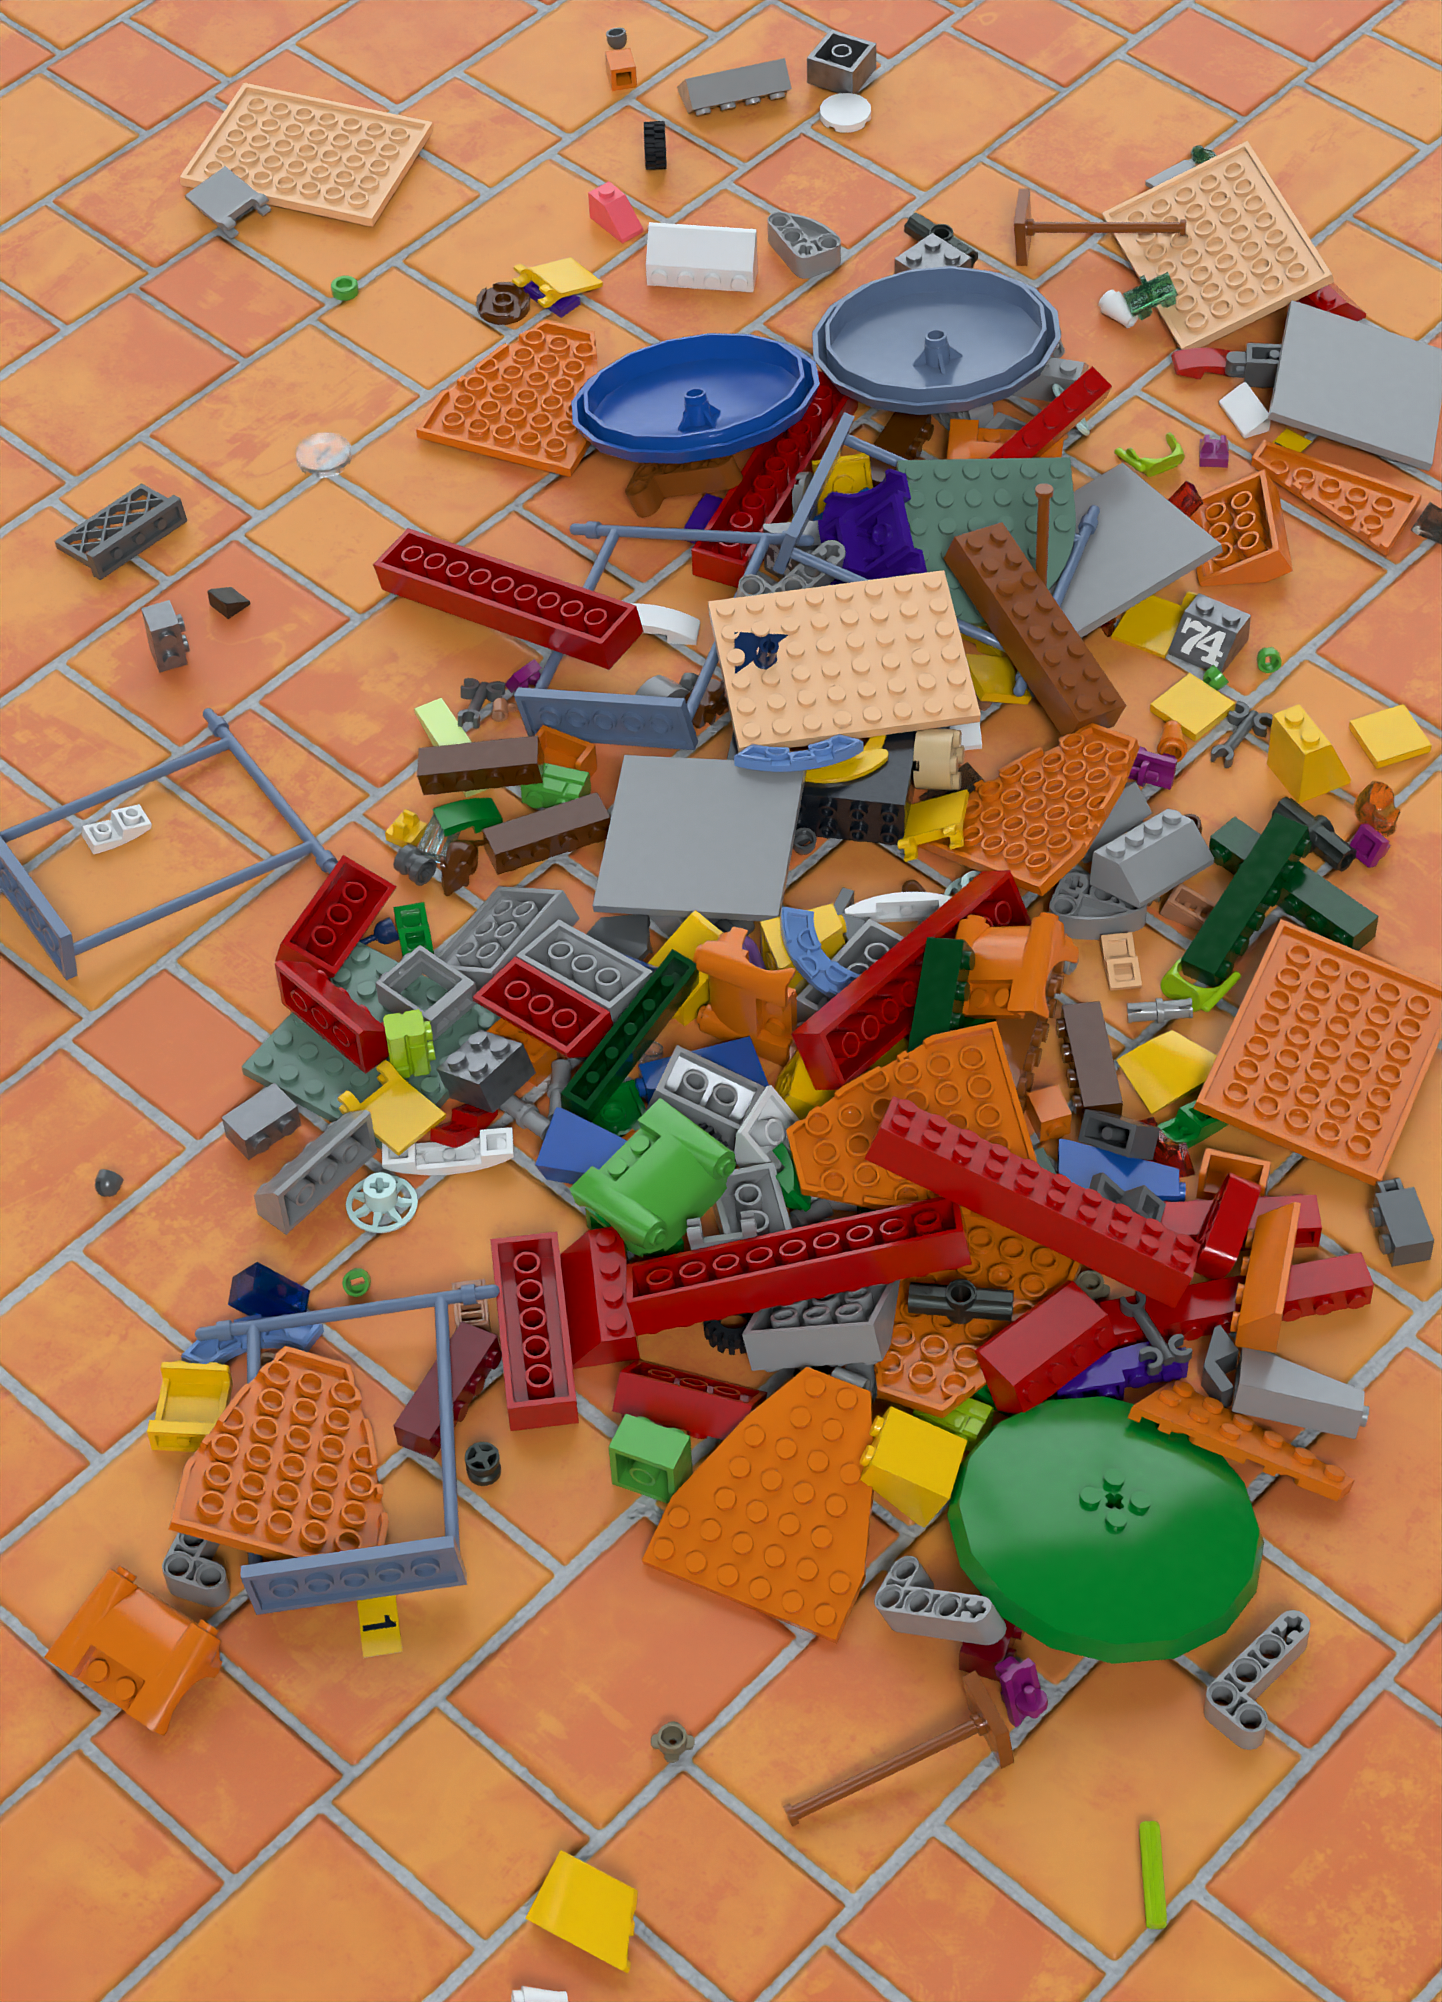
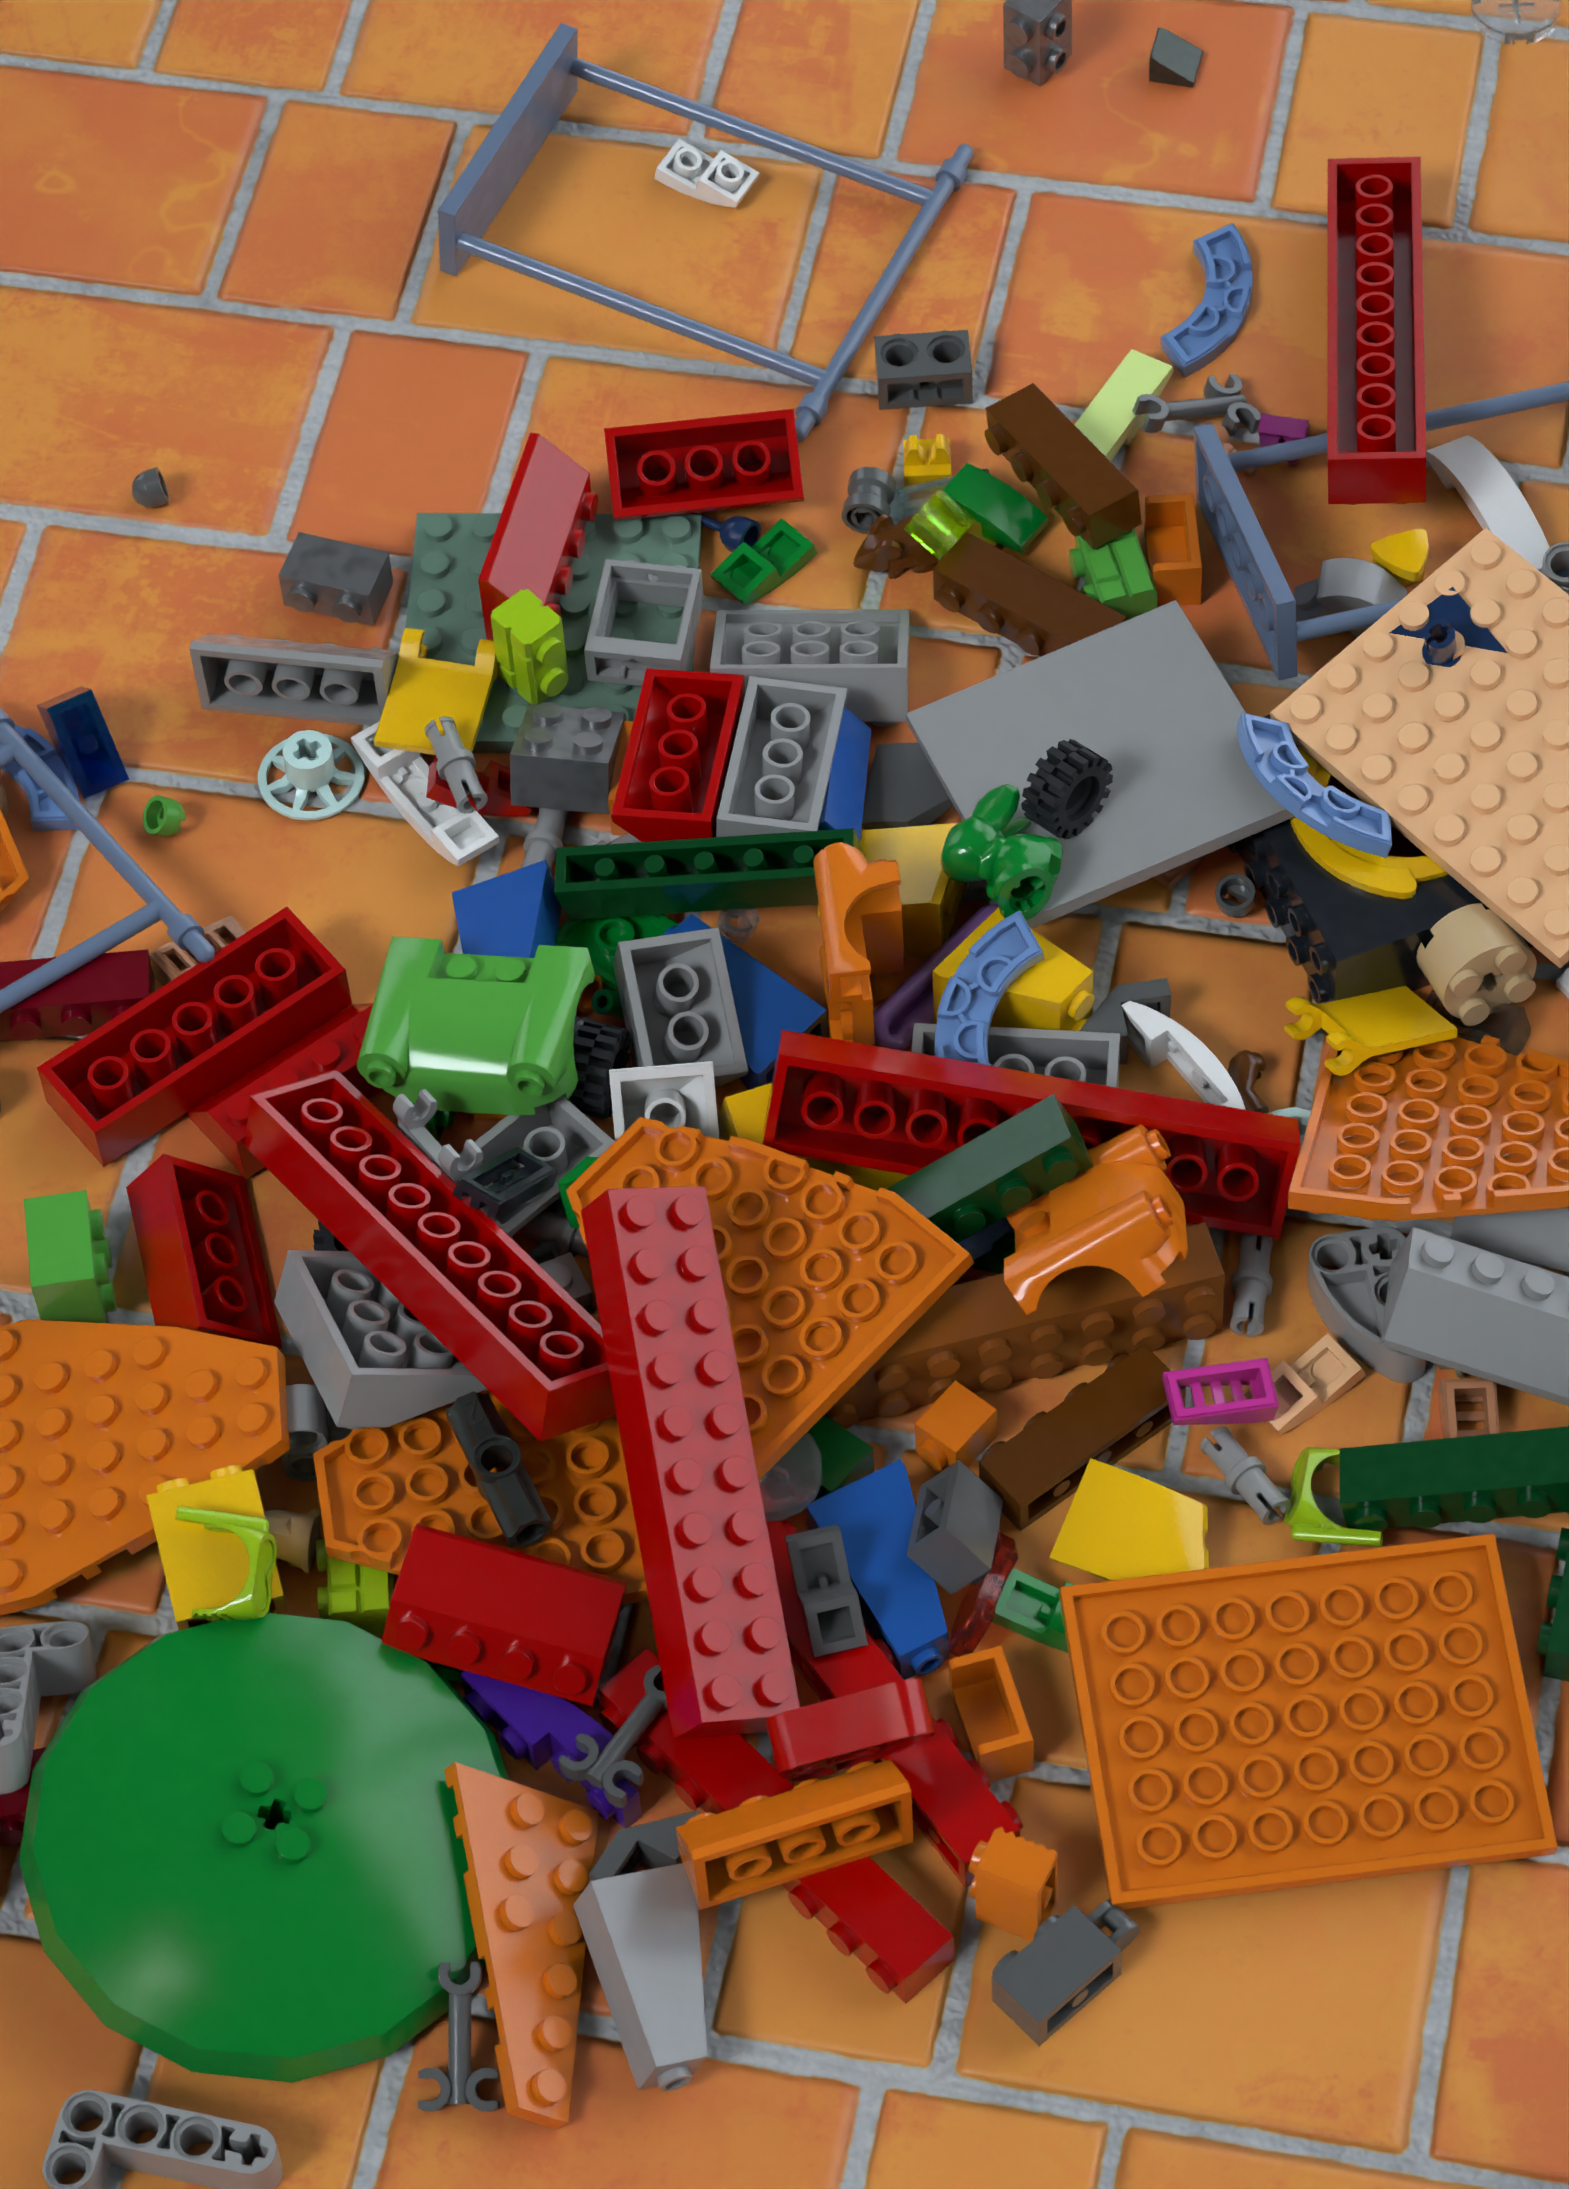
camera: 60 degrees right, 5 degrees up
(346, 799) = (923, 369): none -> dark grey brick
(407, 660) = (1224, 303): none -> medium blue tile
(453, 1119) = (456, 764): none -> light grey pin
(472, 834) = (939, 524): none -> clear neon green slope
(653, 664) = (1402, 555): none -> yellow tile
(725, 847) = (1067, 789): none -> black tyre
(751, 895) = (995, 849): none -> green animal
(767, 1216) = (513, 1187): none -> black tile
(942, 1427) = (262, 1549): none -> lime helmet
(1117, 981) = (1250, 1372): none -> dark pink slope
(1301, 1514) = (459, 2084): none -> dark grey bar
(1349, 1211) = (1013, 1883): none -> orange brick

